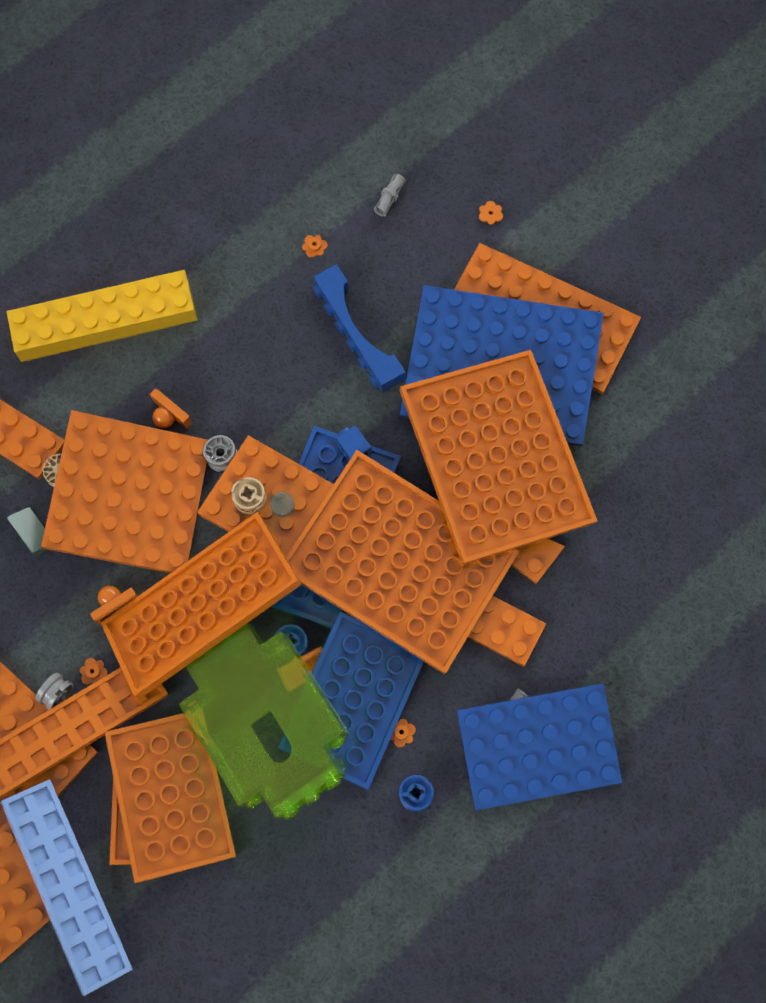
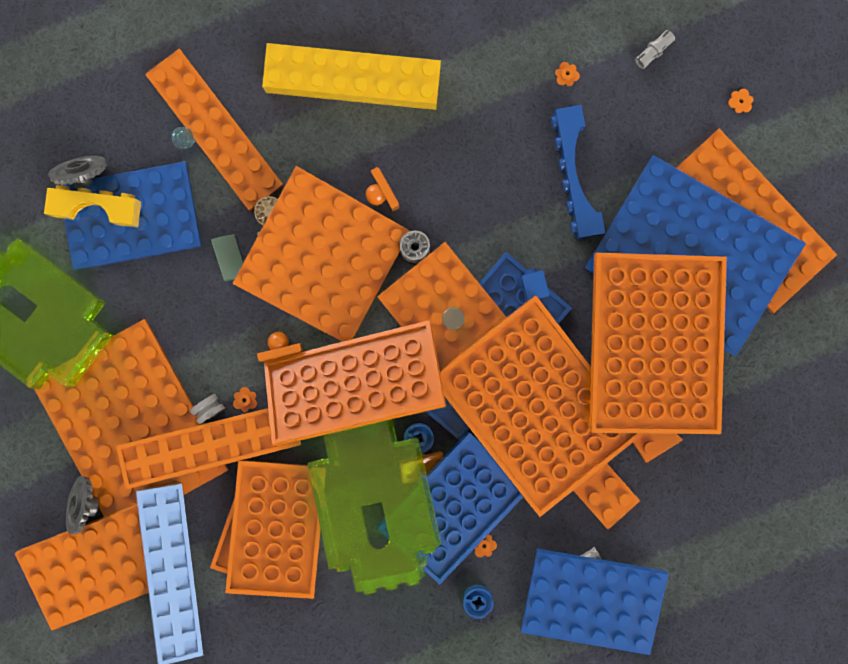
camera: 20 degrees right, 15 degrees up
(248, 495) = (426, 301): tan wheel -> none

